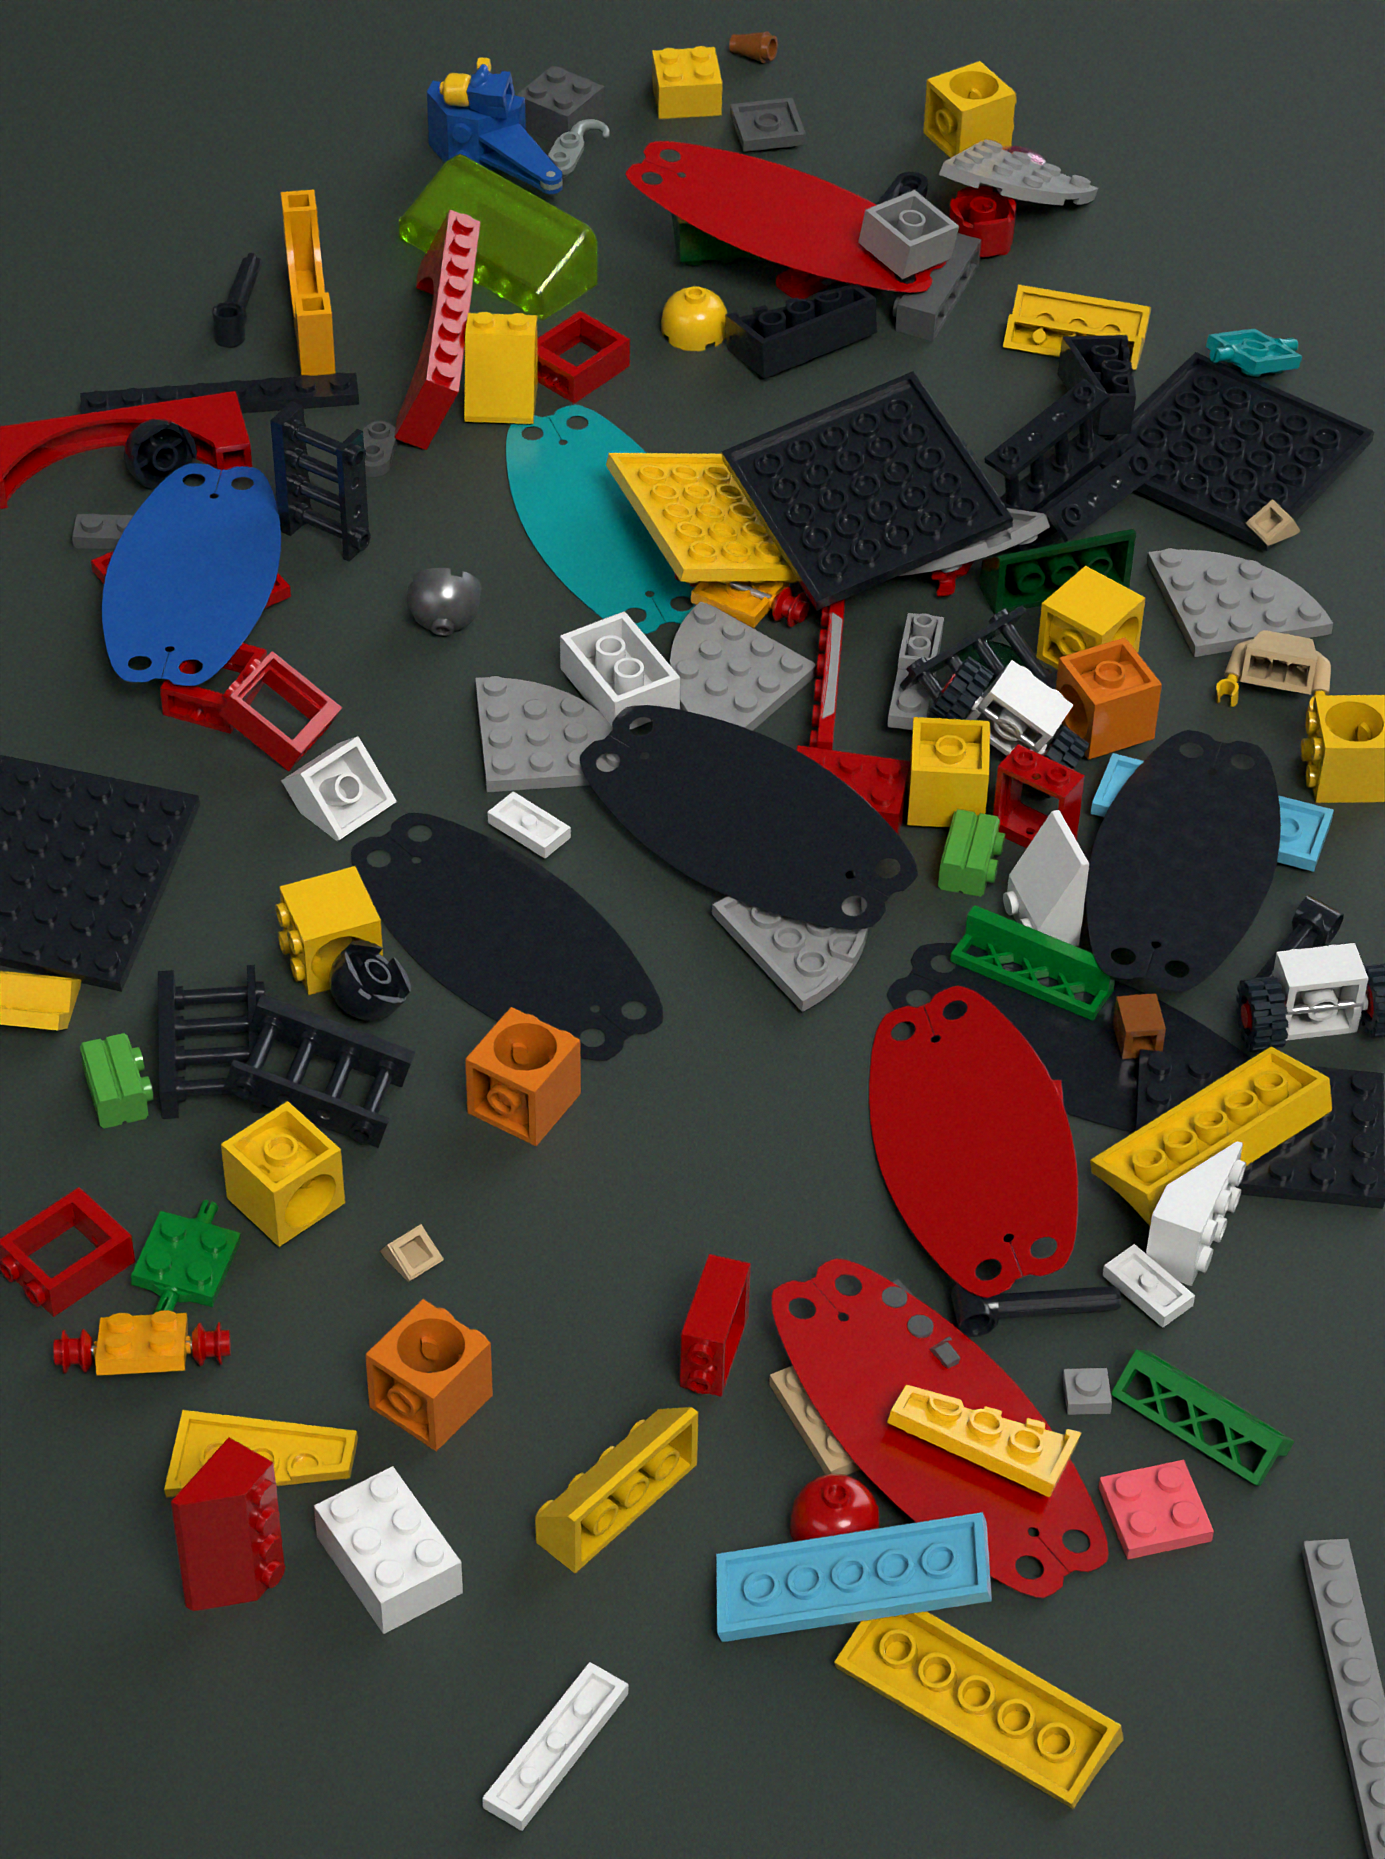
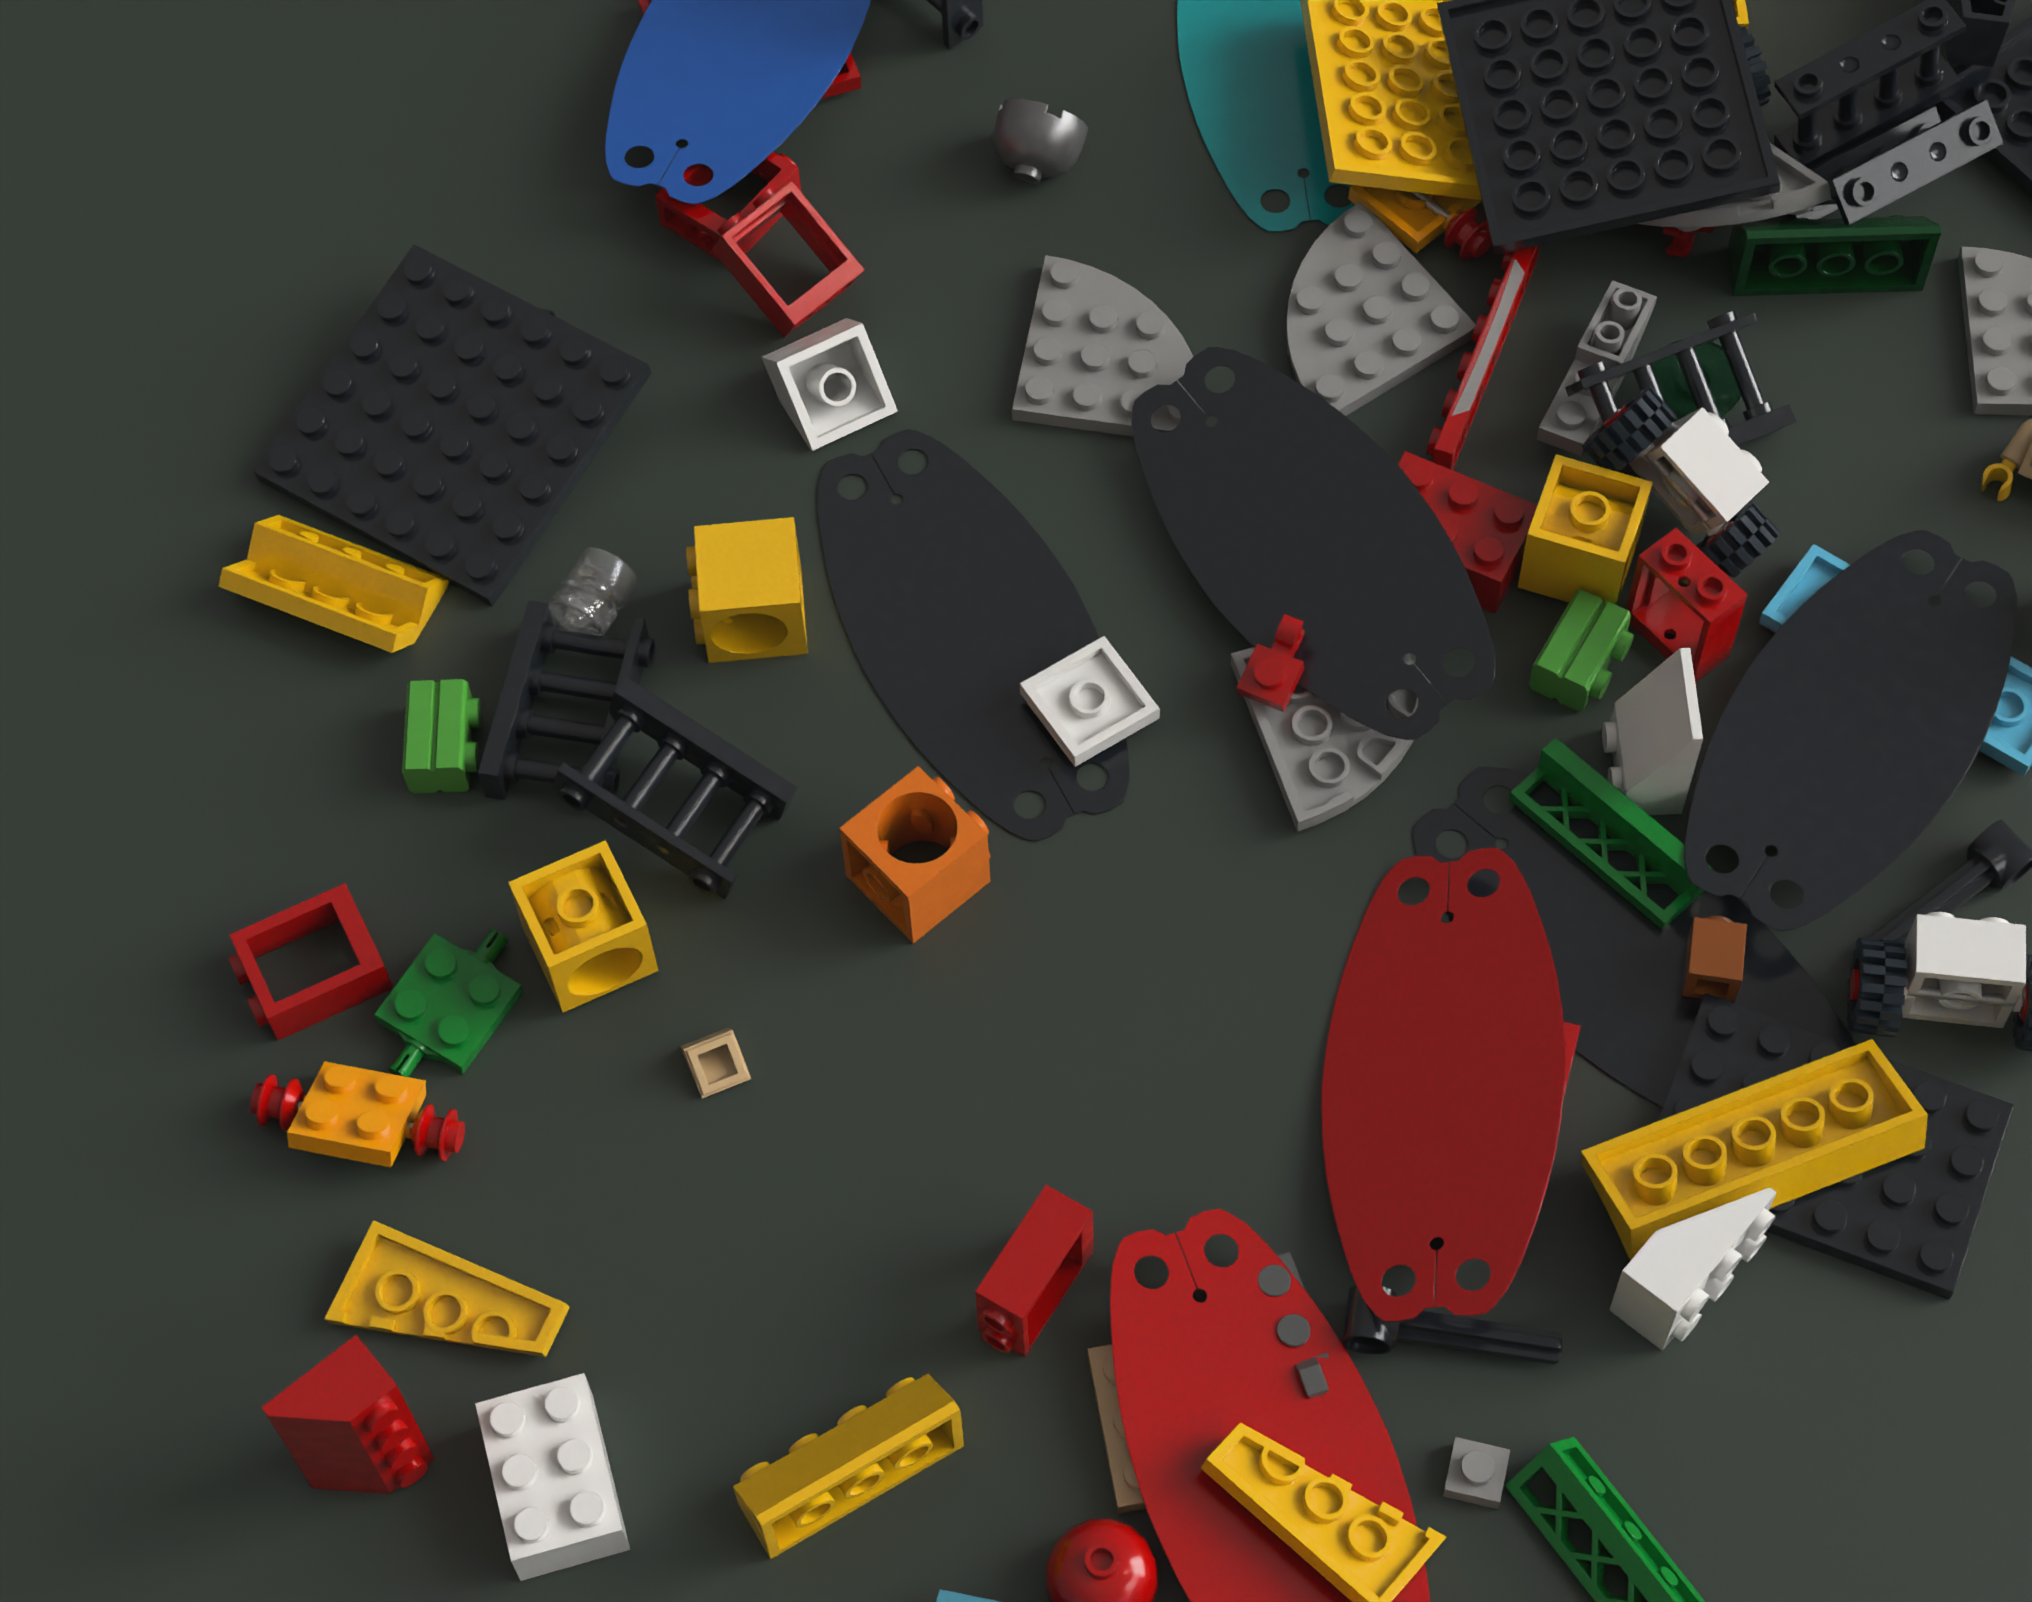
camera: 20 degrees right, 15 degrees up
(205, 957) = (593, 594): none -> clear wheel
(367, 983) = (773, 672): black cylinder -> none
(422, 1402) = (675, 1296): orange brick -> none
(529, 824) = (1044, 484): white plate -> none
(616, 956) = (1089, 701): none -> white plate
(618, 668) = (1221, 285): white brick -> none
(750, 906) = (1273, 671): none -> red plate
(1088, 614) = (1843, 352): yellow brick -> none
(1111, 697) = (1827, 466): orange brick -> none
(1148, 1285) = (1603, 1343): white plate -> none

